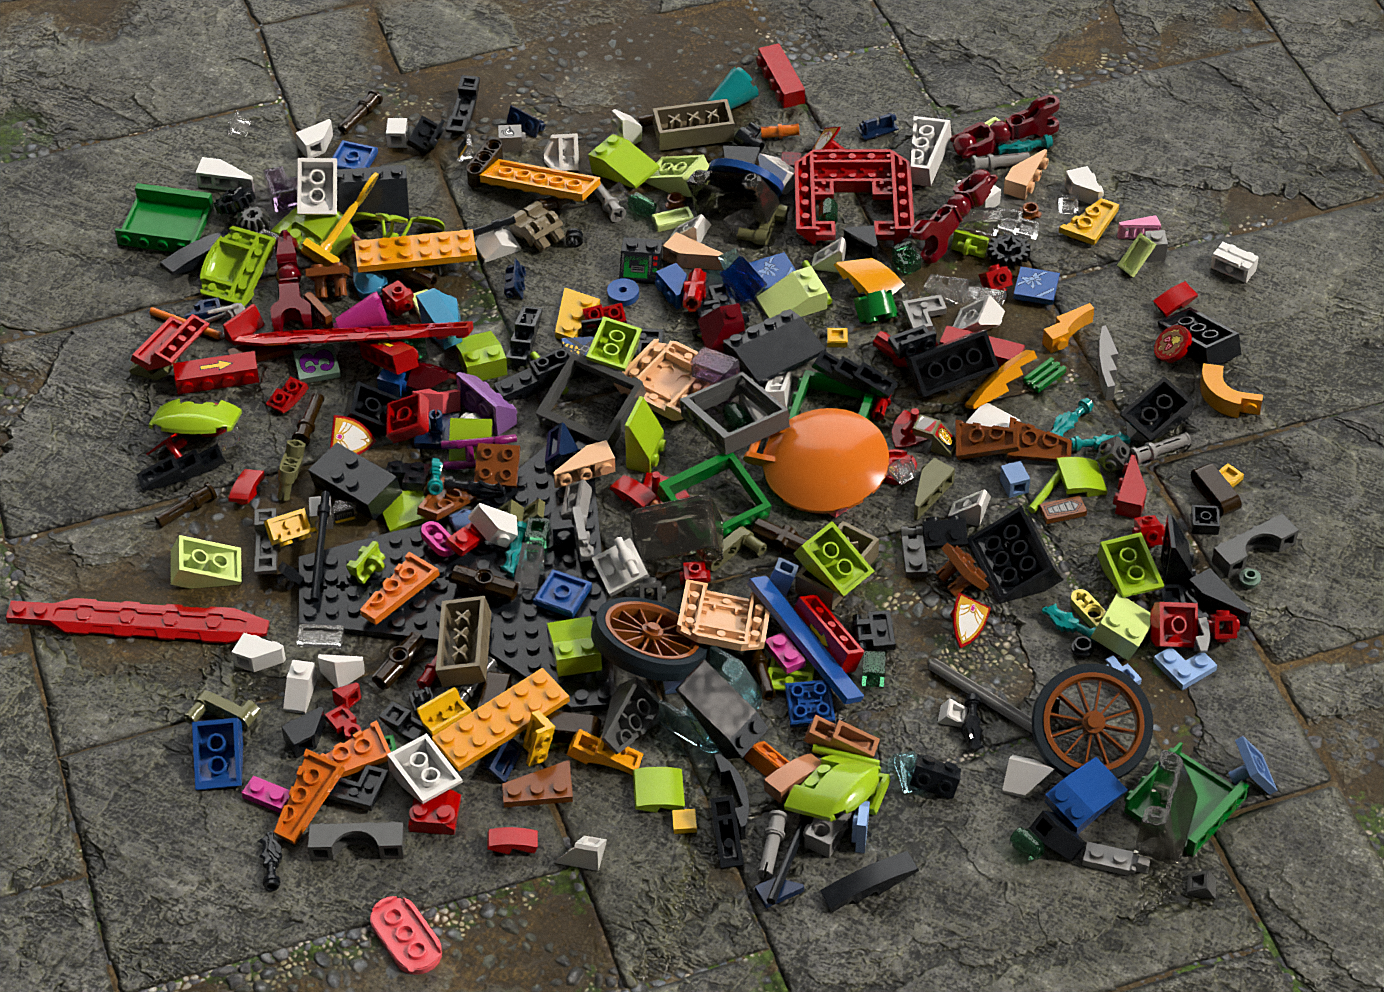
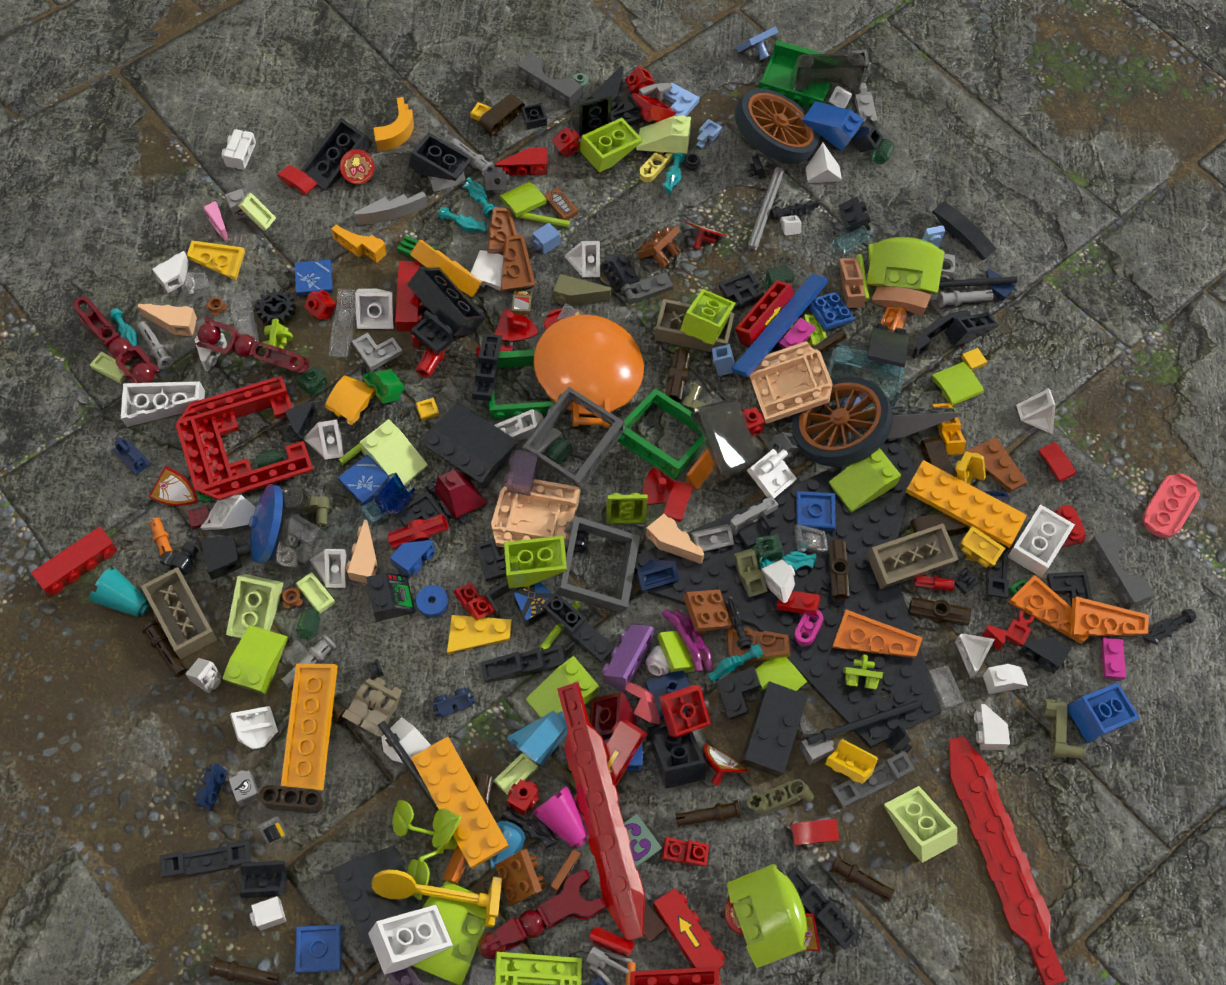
camera: 115 degrees left, 15 degrees up
(459, 519) = (773, 621): medium blue slope -> none
(1014, 557) = (627, 219): black slope -> none
(1131, 833) = (840, 97): none -> white tile

